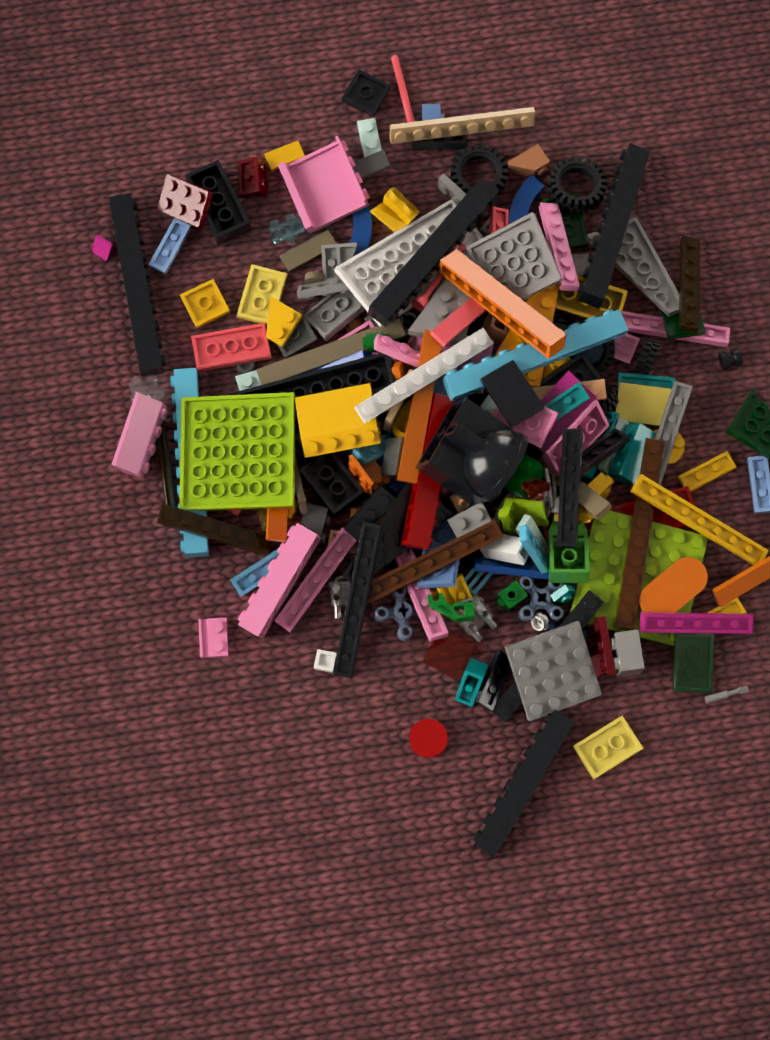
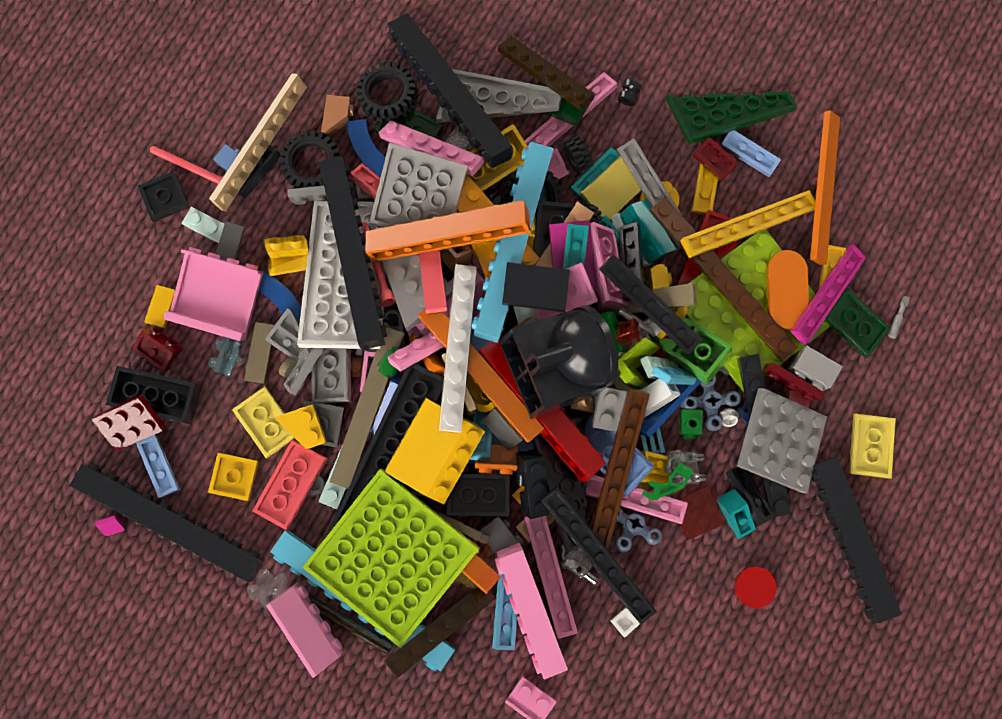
camera: 50 degrees left, 5 degrees up
(564, 594) = (724, 380): teal plate -> none
(731, 461) = (715, 158): none -> dark red bracket

